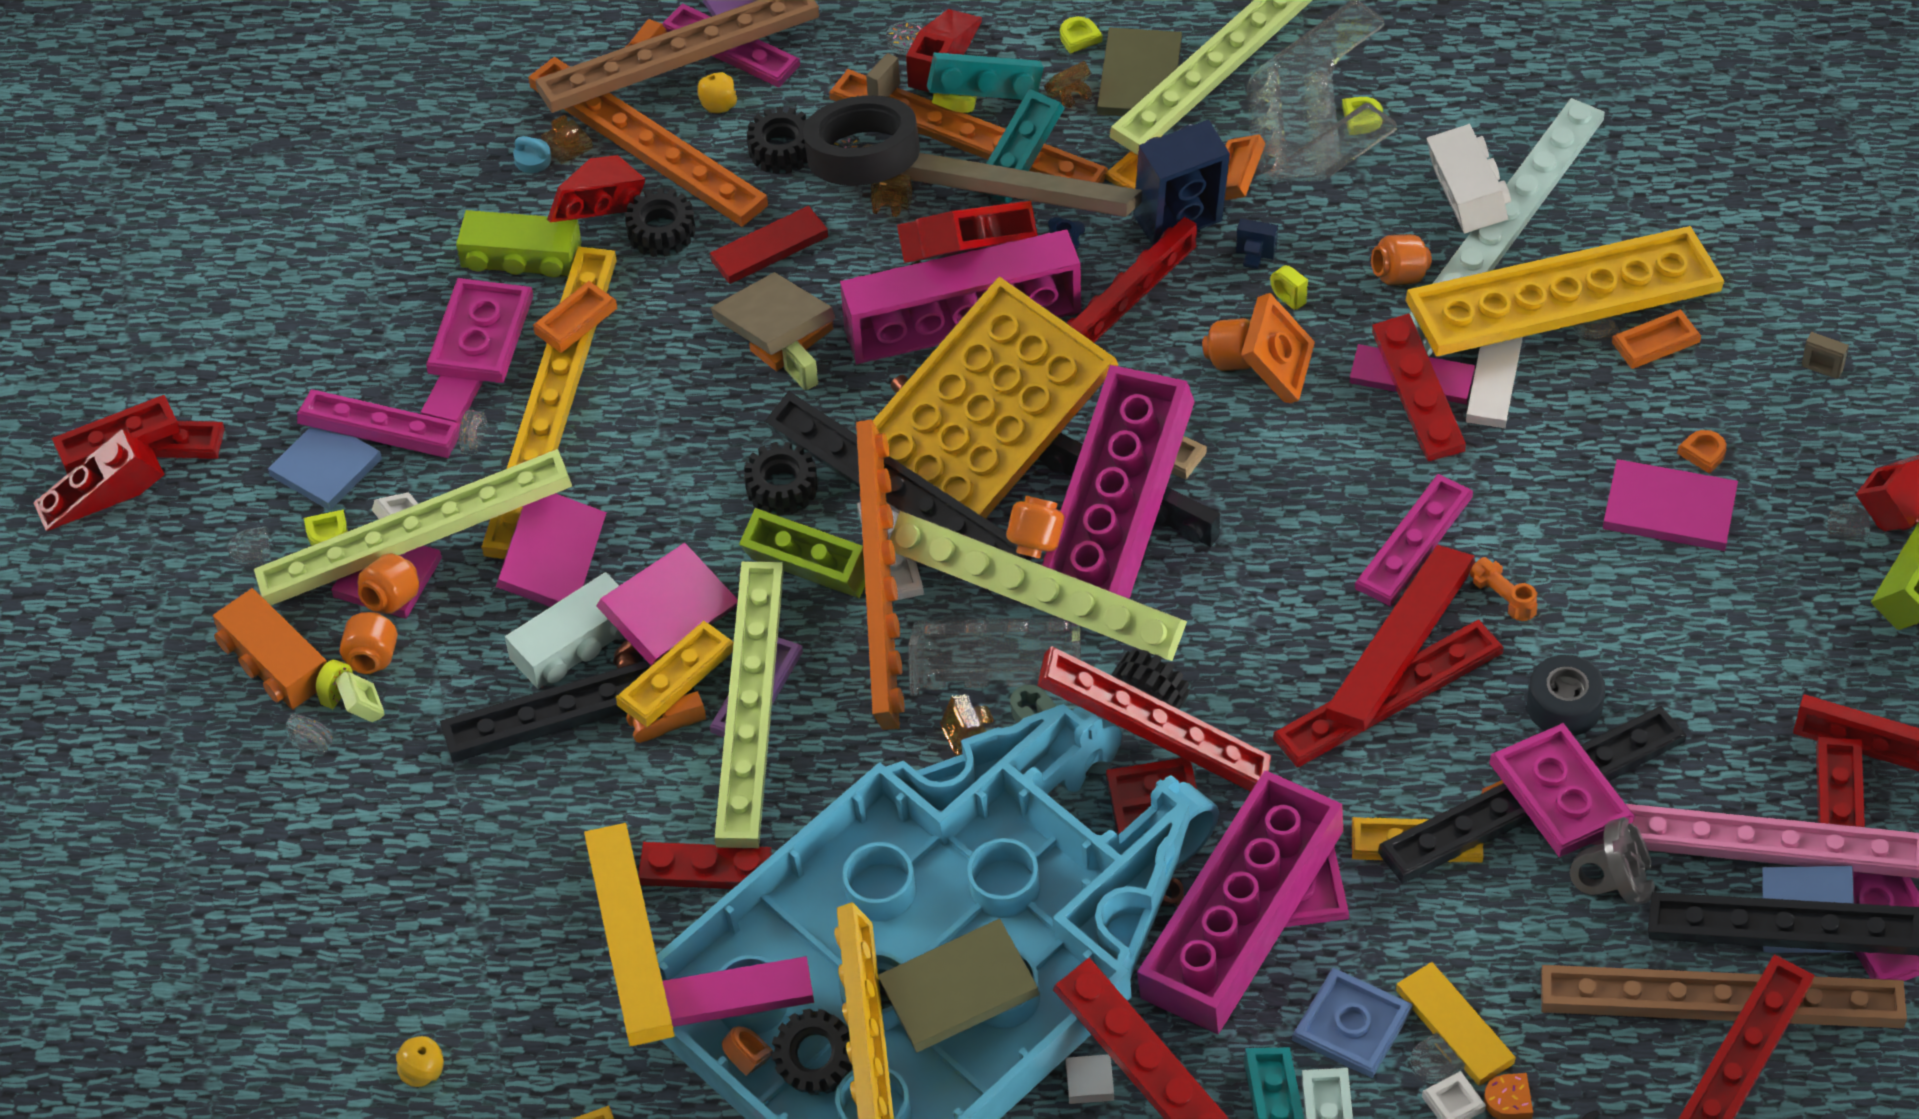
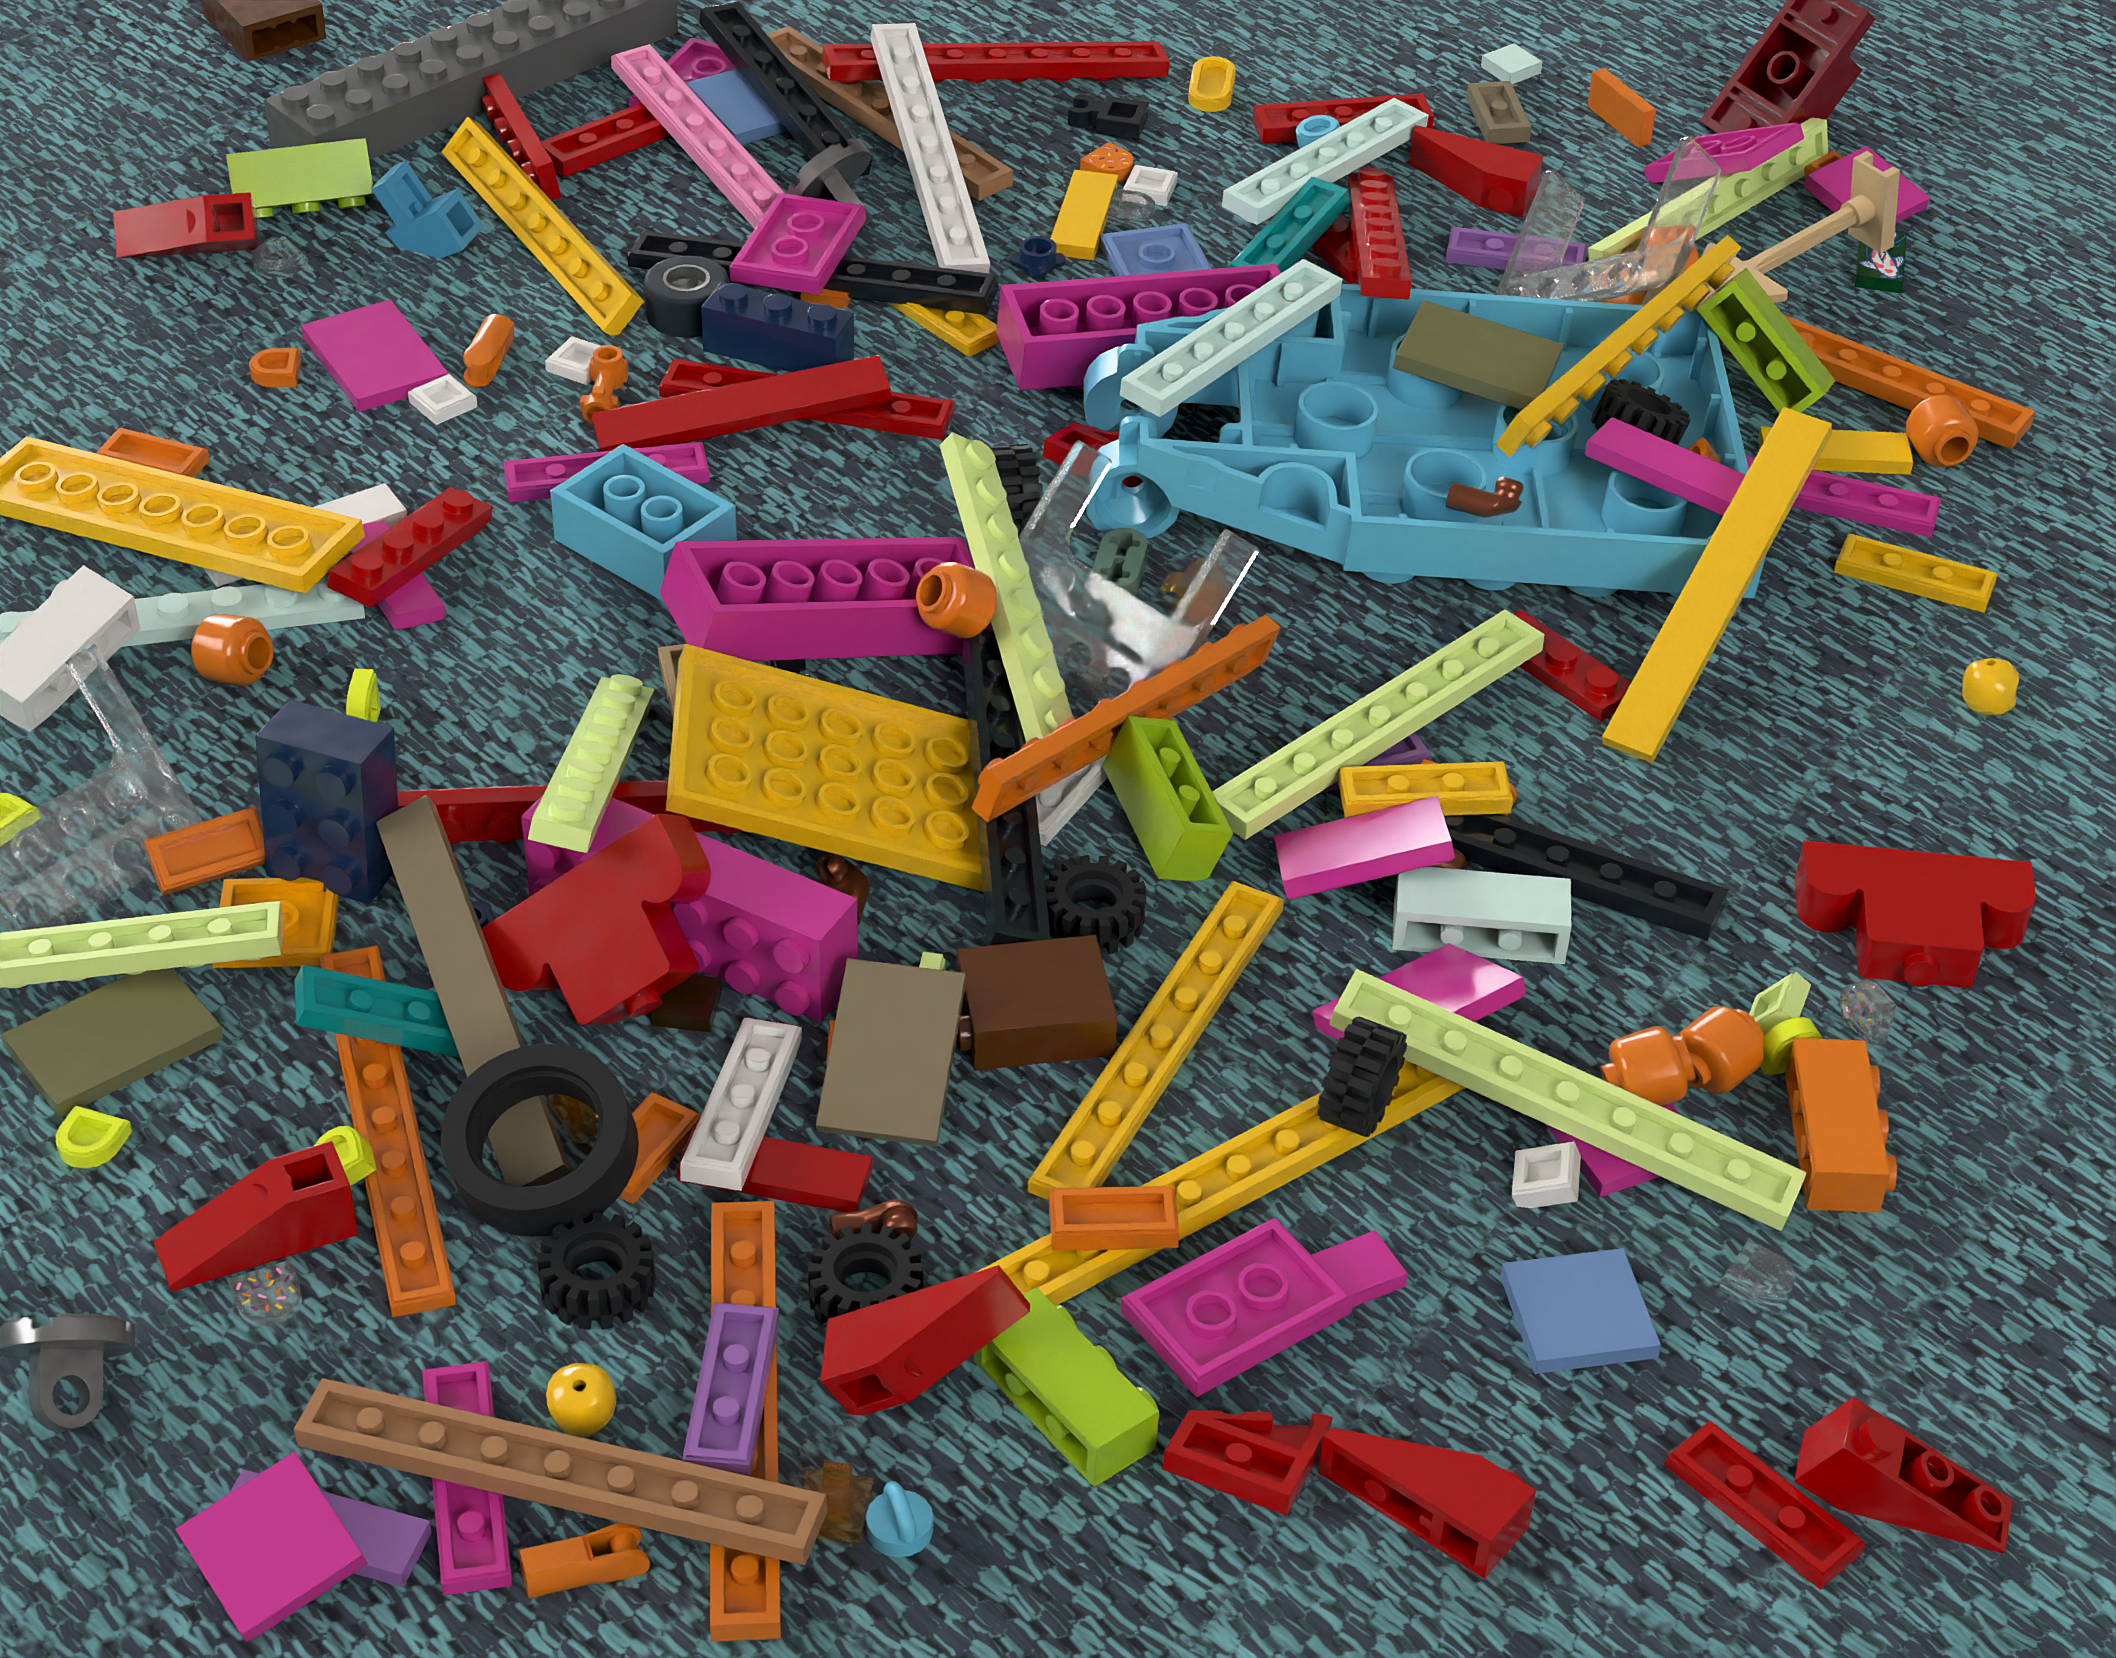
camera: 140 degrees left, 10 degrees down
(145, 421) = (1839, 1507): red plate -> none
(306, 320) = (1434, 1492): none -> red slope
(325, 526) = (1647, 1230): neon yellow tile -> none
(334, 829) = (1915, 911): none -> red brick
(379, 423) = (1476, 1297): dark pink tile -> none
(411, 282) = (1246, 1454): none -> red wing
(472, 432) = (1368, 1199): clear tile -> none
(513, 434) = (1362, 1076): none -> black tyre
(652, 128) = (732, 1387): none -> medium lavender tile
(668, 444) = (1158, 1042): none -> yellow tile
(687, 254) = (892, 1213): none -> copper arm
(739, 397) = (1035, 1003): none -> reddish brown brick
(810, 242) = (741, 1104): none -> white tile
(811, 841) = (1485, 503): none -> copper arm
(841, 211) = (662, 1134): none -> orange tile
(884, 76) = (398, 1213): dark tan tile -> none
(983, 76) = (294, 1116): teal plate -> none
(1069, 81) = (203, 1071): clear orange tile -> none
(1070, 272) = (592, 764): none -> yellowish green plate
(1107, 831) = (1230, 338): none -> light aqua plate
(1152, 719) = (1064, 425): red tile -> none
(1226, 343) = (499, 693): orange head -> none
(1277, 348) = (489, 636): orange plate -> none
(1317, 494) = (632, 513): none -> medium azure brick
(1423, 934) = (1037, 256): none -> dark blue plate
(1464, 707) = (775, 329): none -> dark blue brick
(1559, 604) = (572, 360): none -> white tile
(1581, 509) = (442, 399): none -> white tile
(1609, 947) = (929, 148): none -> white plate
(1612, 557) = (488, 350): none -> orange bar
(1764, 681) = (543, 228): none -> yellow plate
(1806, 613) = (422, 223): none -> dark azure brick
(1824, 355) = (71, 339): dark tan tile -> none

